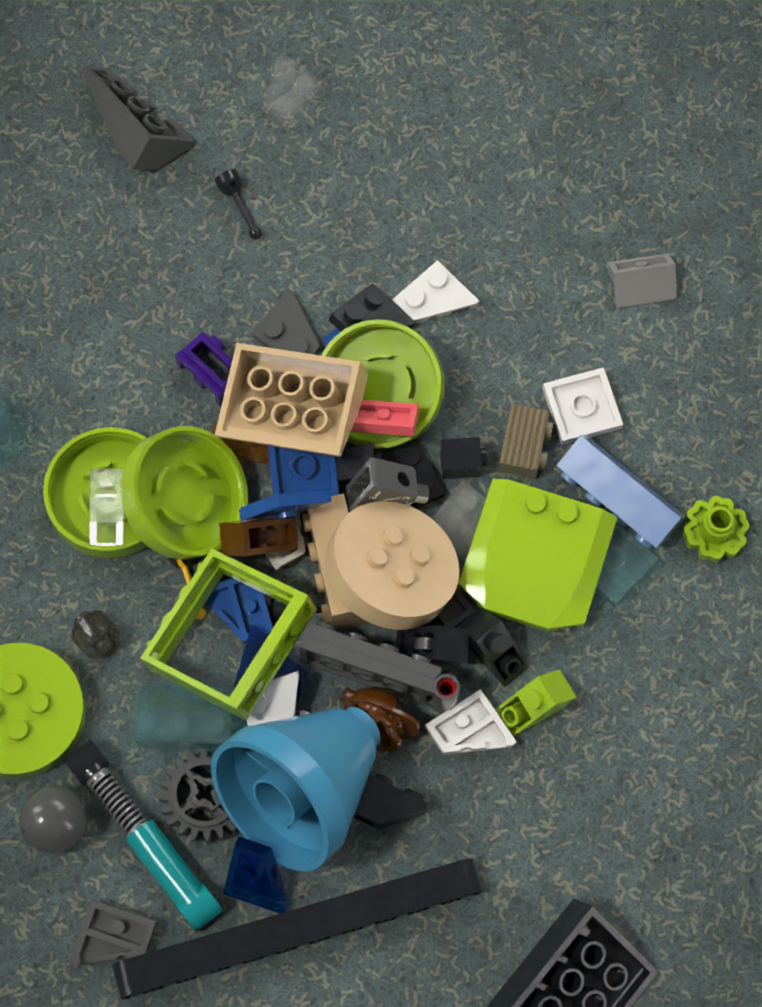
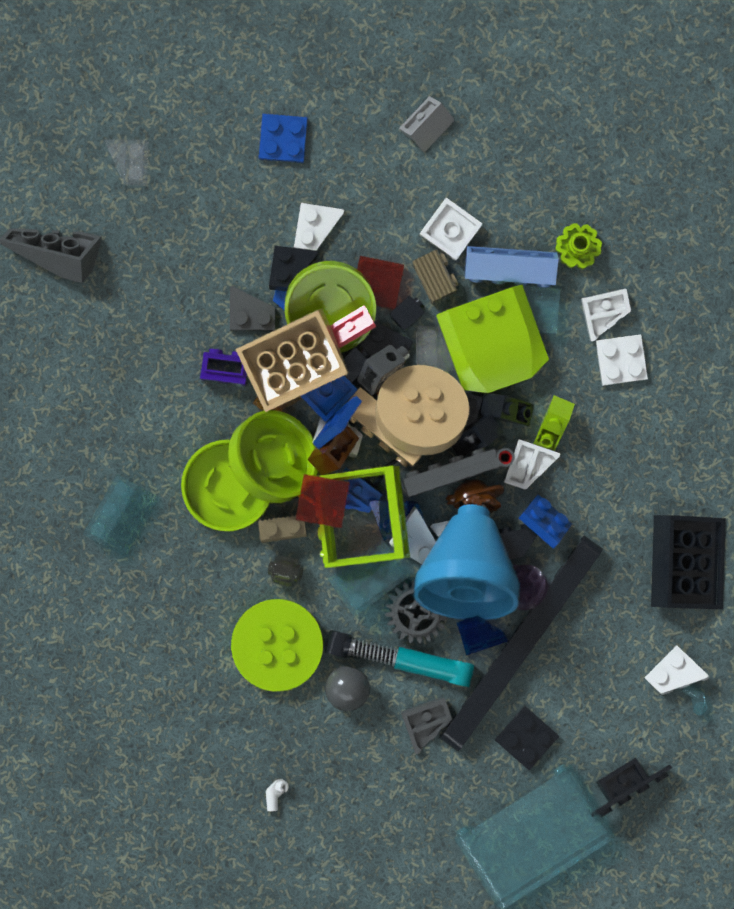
camera: 35 degrees left, 15 degrees up
(106, 507) = (237, 498): clear brick -> none
(130, 584) = (281, 529): none -> dark tan brick
(198, 578) = (322, 500): none -> clear red plate
(230, 184) = (144, 248): black hinge -> none
(357, 865) = (532, 586): none -> clear purple tile
(438, 803) = (545, 521): none -> blue plate
(464, 403) = (384, 279): none -> clear red plate
(471, 183) = (283, 138): none -> blue plate
(670, 692) = (621, 360): none -> white plate
(692, 622) = (604, 311): none -> white wing

